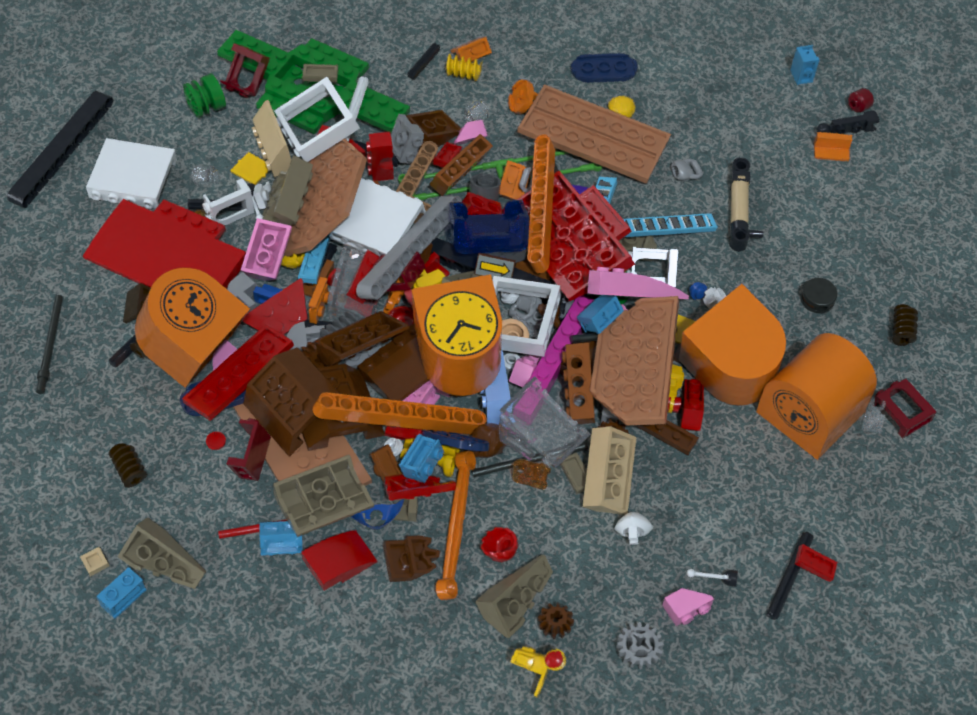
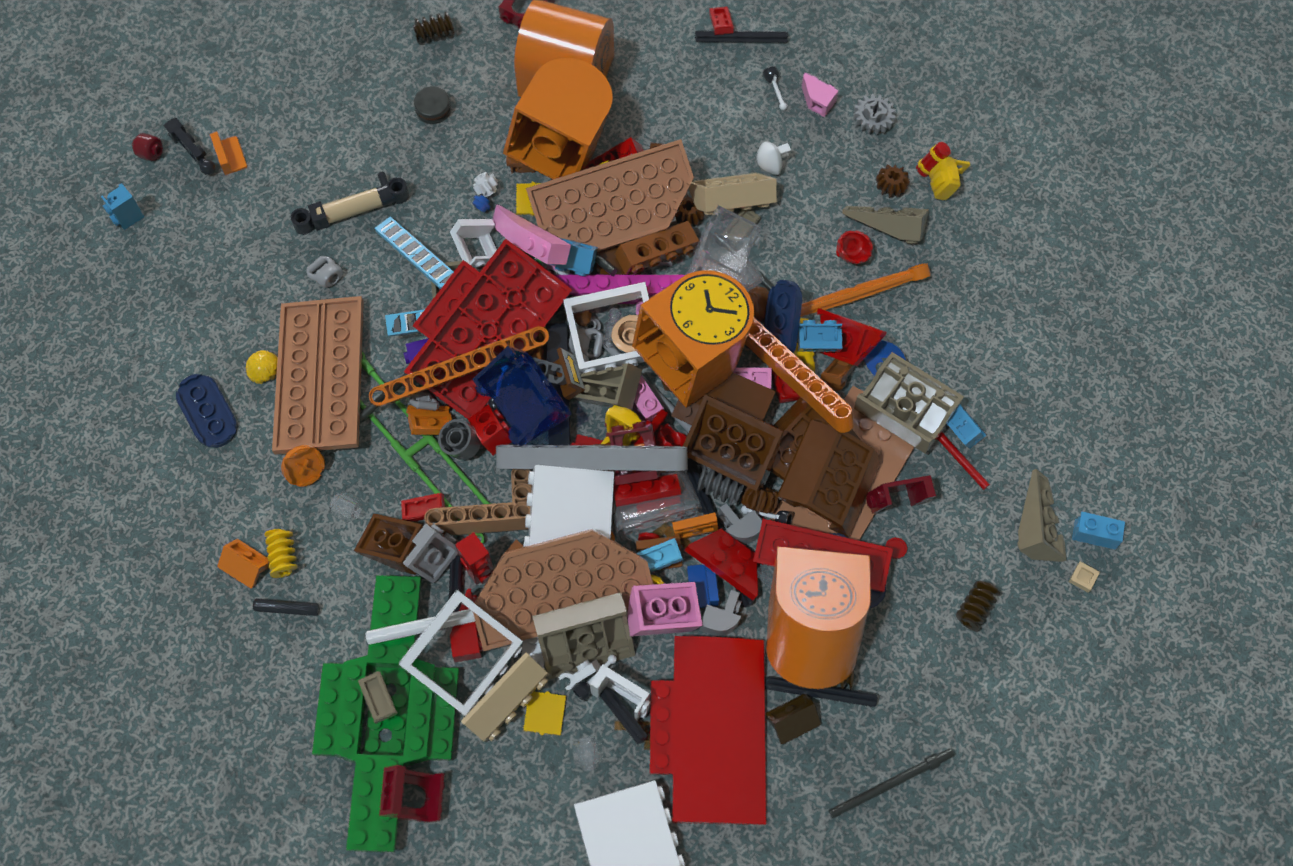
camera: 115 degrees left, 10 degrees up
(204, 95) = (472, 819): green wheel -> none
(338, 558) = (950, 367): red slope -> none
(409, 558) = (909, 315): reddish brown plate -> none
(461, 165) = (439, 476): dark orange brick -> none
(471, 131) = (377, 498): bright pink slope -> none
(531, 473) = (766, 255): clear orange piece -> none

